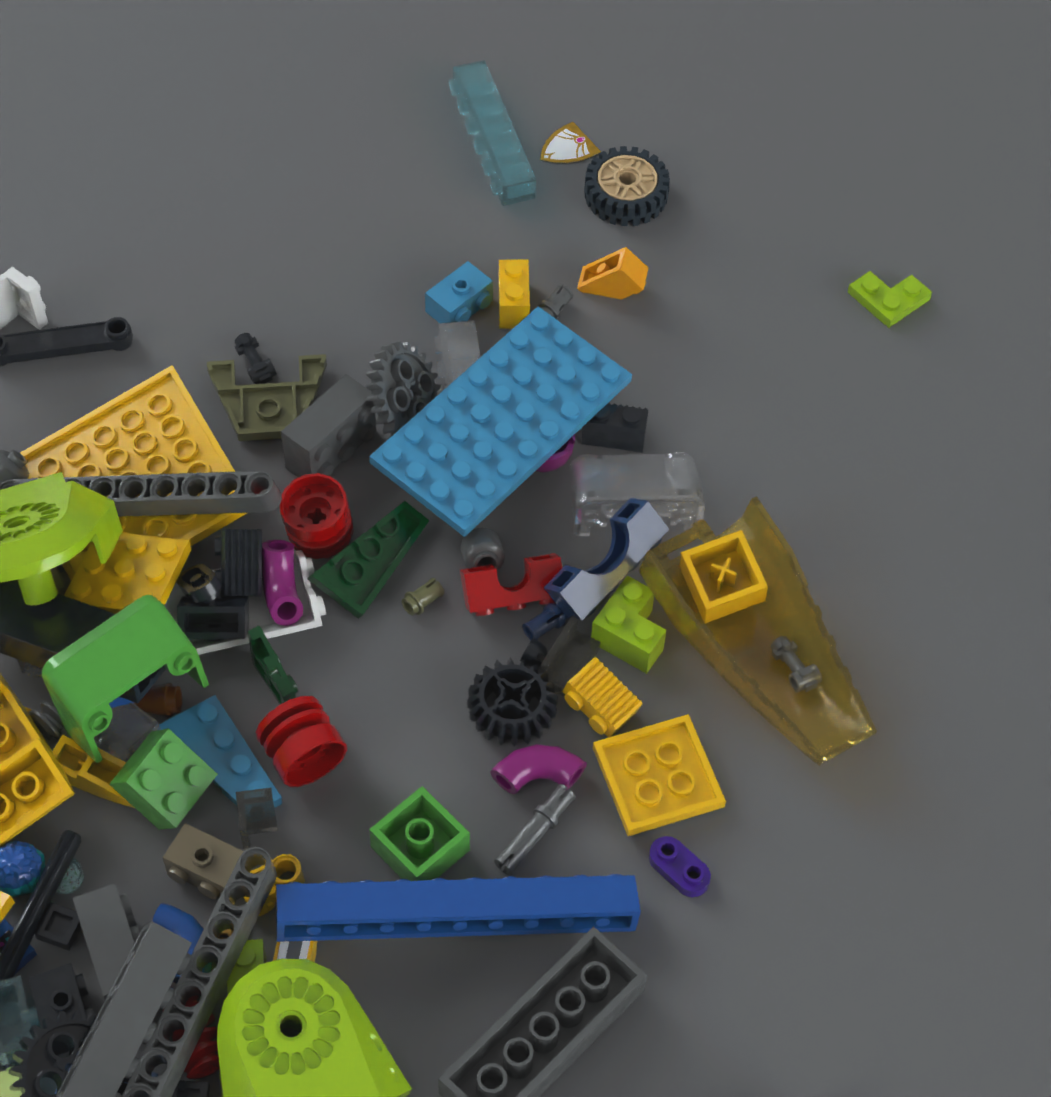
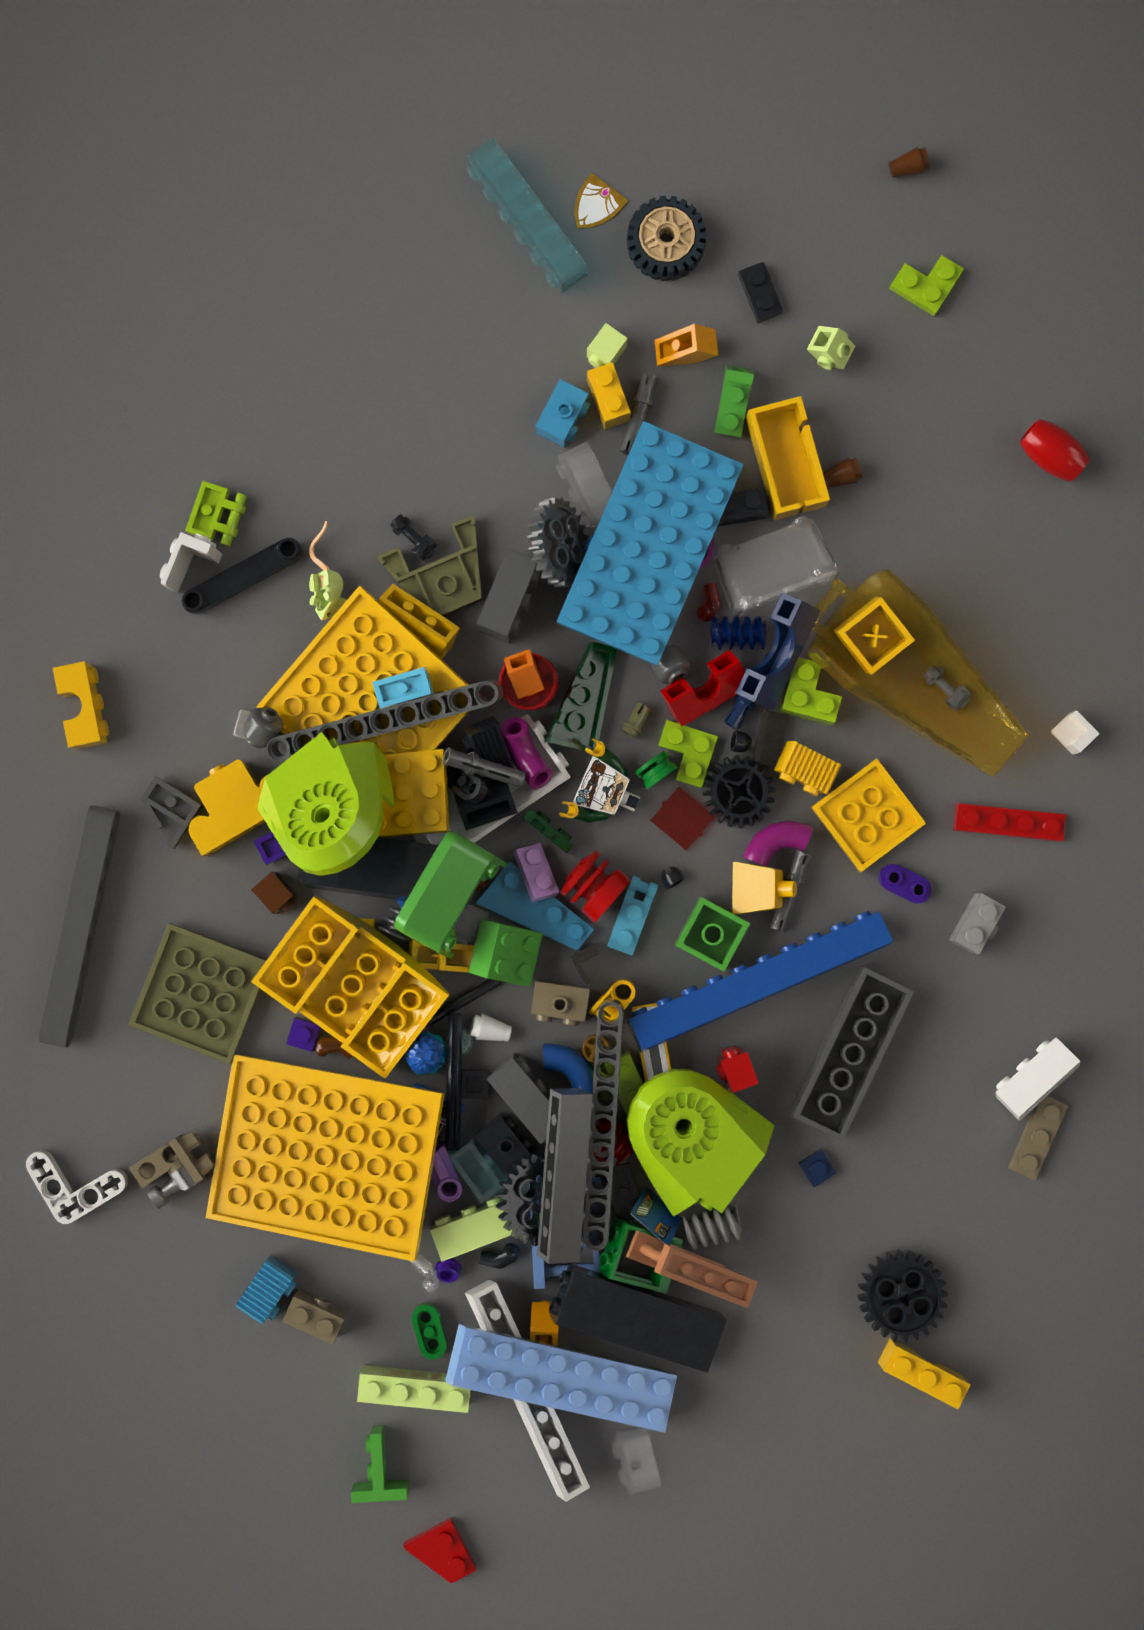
camera: 15 degrees left, 30 degrees up
(57, 275) = (208, 512): none -> lime plate
(94, 829) = (464, 999): none -> black bar
(106, 868) = (490, 1029): none -> white cone
(139, 370) = (325, 585): none -> yellowish green animal
(173, 462) = (403, 687): none -> medium azure plate
(195, 543) = (473, 764): none -> dark grey pin
(229, 429) = (420, 619): none -> yellow brick
(239, 713) = (536, 872): none -> lavender plate
(311, 492) = (524, 674): none -> orange brick
(333, 800) = (632, 916): none -> medium azure plate
(353, 649) = (601, 788): none -> torso
(389, 1002) = (736, 1068): none -> red brick
(404, 771) = (673, 878): none -> black hinge
(424, 648) = (658, 772): none -> green wheel
(435, 716) = (682, 818): none -> clear red piece
(477, 645) = (696, 750): none -> lime plate
(497, 807) = (759, 888): none -> yellow torso
(534, 248) = (606, 346): none -> yellowish green brick
(554, 512) = (711, 605): none -> clear red arm
(571, 541) = (738, 632): none -> clear blue piece
(647, 330) = (734, 400): none -> bright green bracket
(684, 395) = (787, 458): none -> yellow piece
(708, 257) = (760, 292): none -> black plate
(742, 431) = (843, 473): none -> reddish brown cone
(755, 934) = (977, 923): none -> light grey brick
(766, 315) = (831, 347): none -> yellowish green brick
(831, 837) = (1009, 822): none -> red plate
(900, 193) = (910, 163): none -> reddish brown cone
(939, 761) = (1074, 732): none -> white panel
(987, 471) = (1054, 450): none -> red piece

